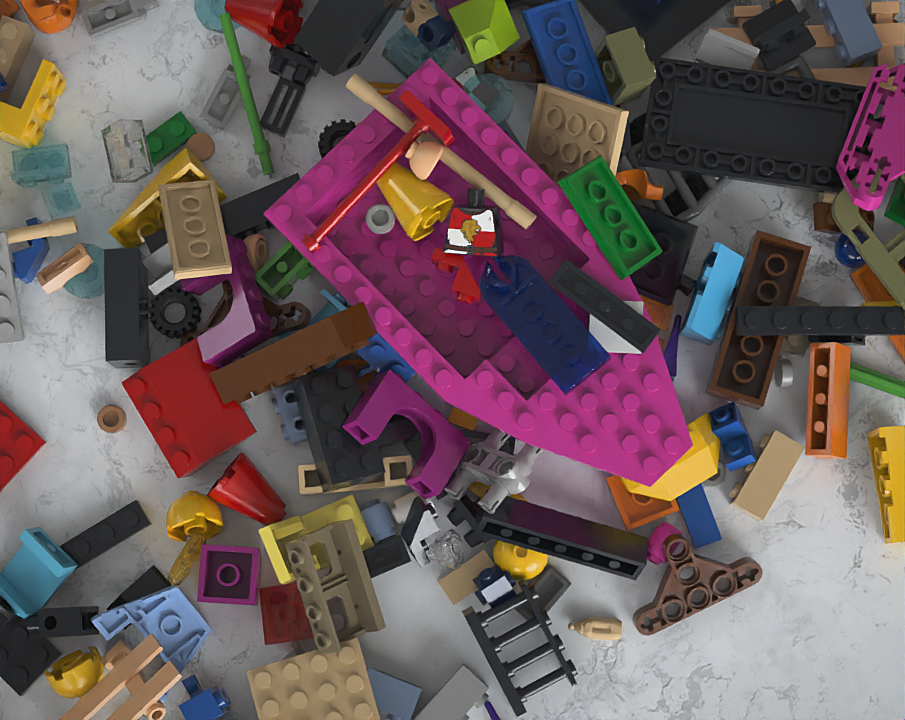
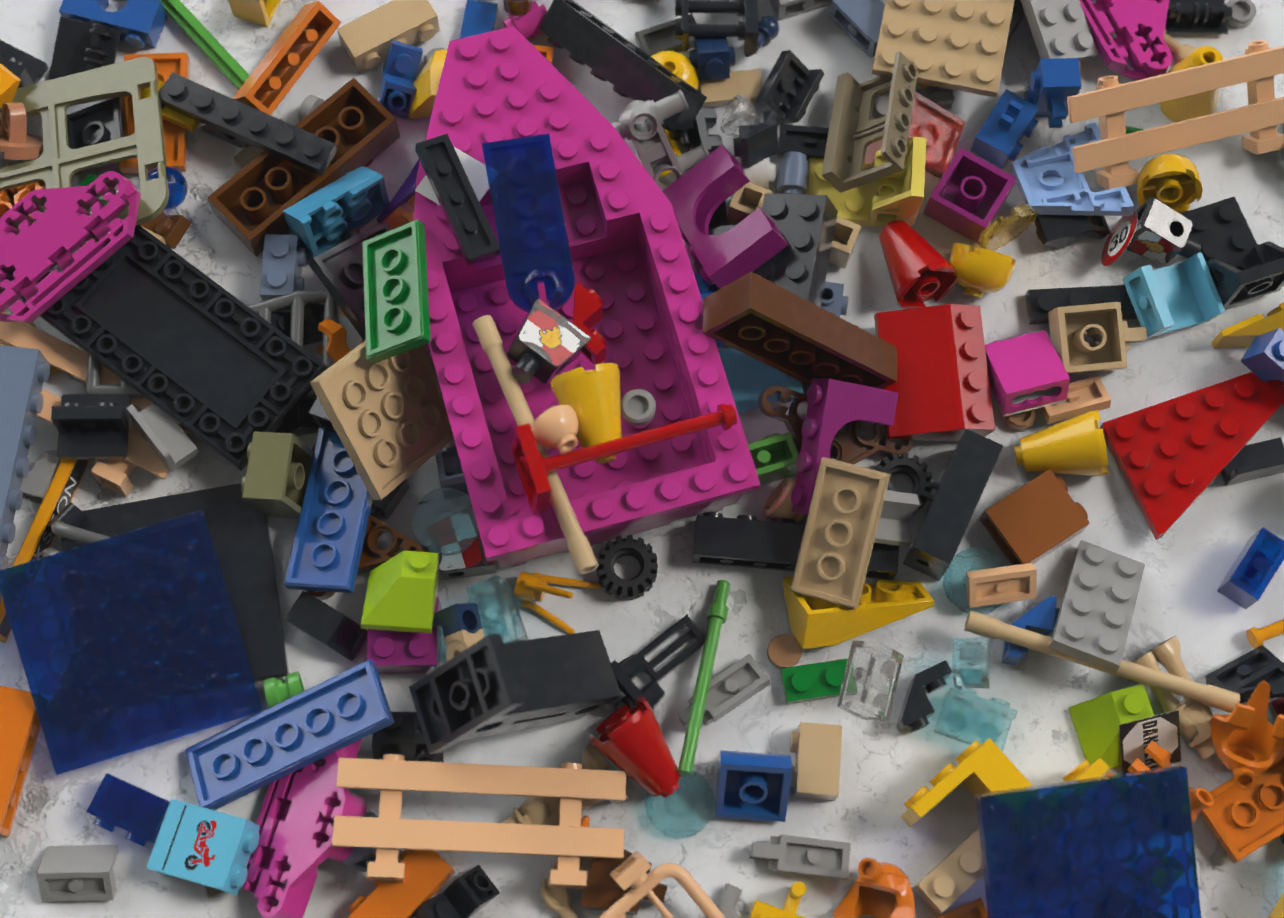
camera: 160 degrees left, 10 degrees down
(62, 336) = (1035, 519): none -> dark orange brick
(62, 402) = (1066, 448): none -> yellow cone
(67, 506) = (1107, 330): none -> tan hinge
(75, 448) = (1082, 397): none -> light nougat plate
(87, 150) = (916, 704): none -> black slope
(94, 596) = (1119, 239): none -> sticker
(120, 446) = (1026, 373): none -> dark pink piece
(139, 80) = (816, 760): none -> tan brick
(175, 39) = (753, 785): none -> blue brick
(229, 655) = (1004, 129): none -> blue brick
(419, 596) = (789, 88): none -> black bracket
(467, 648) = (767, 30): none -> dark blue bar
(722, 226) = (282, 266): none -> sand blue brick

